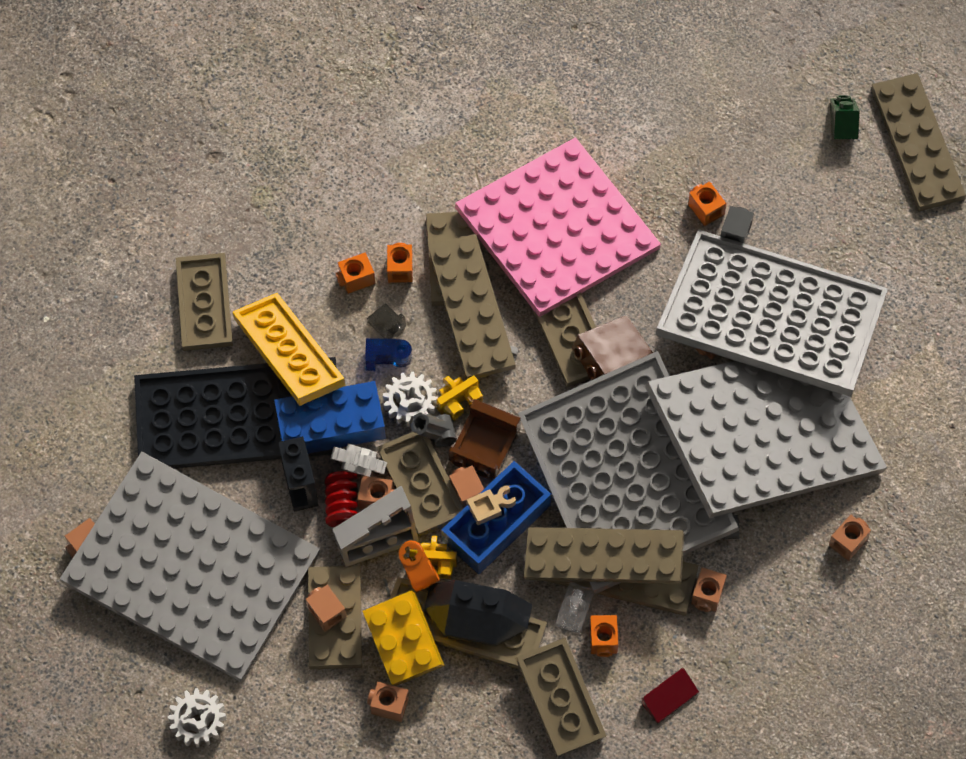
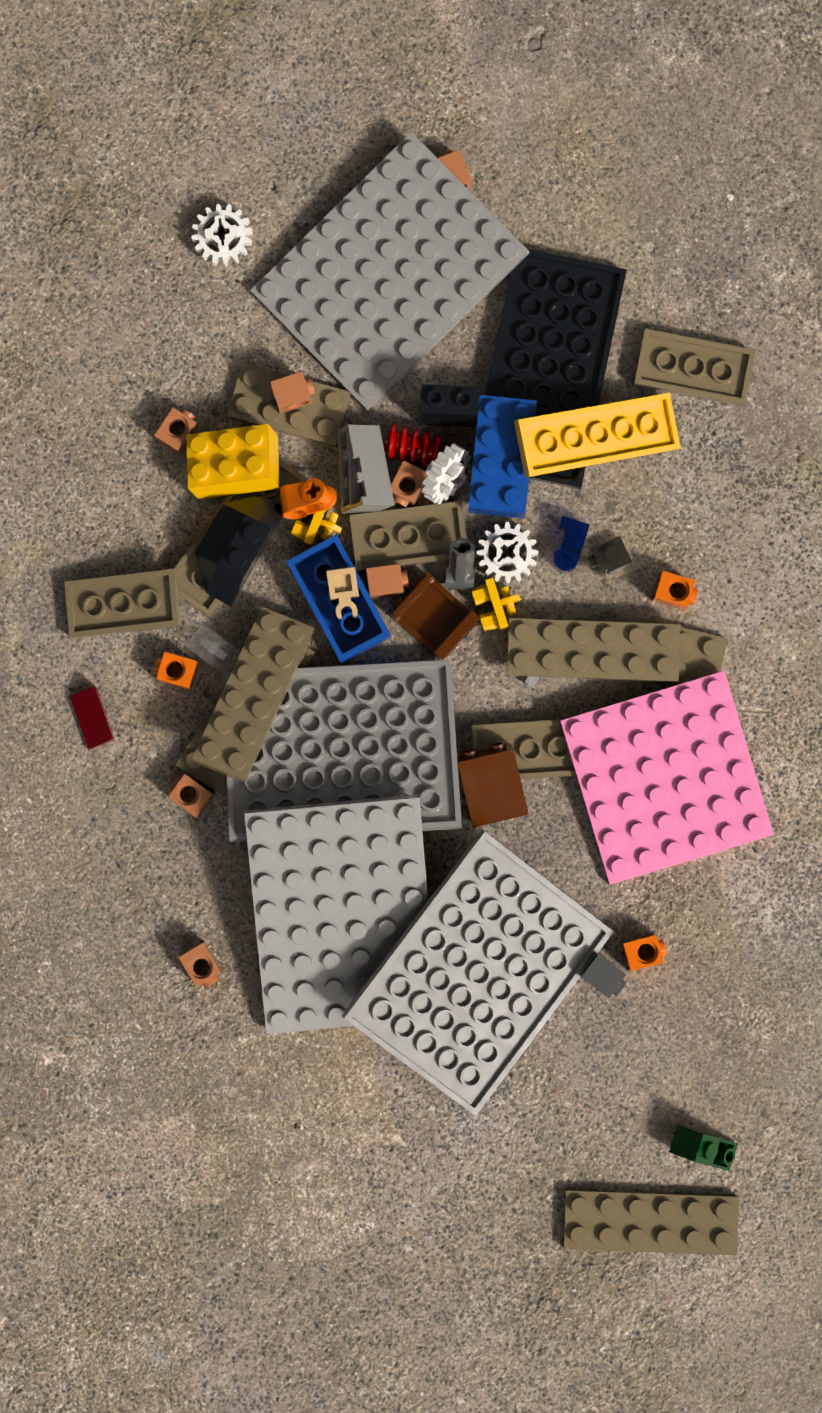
camera: 110 degrees right, 20 degrees up
(360, 264) = (672, 550): orange brick -> none

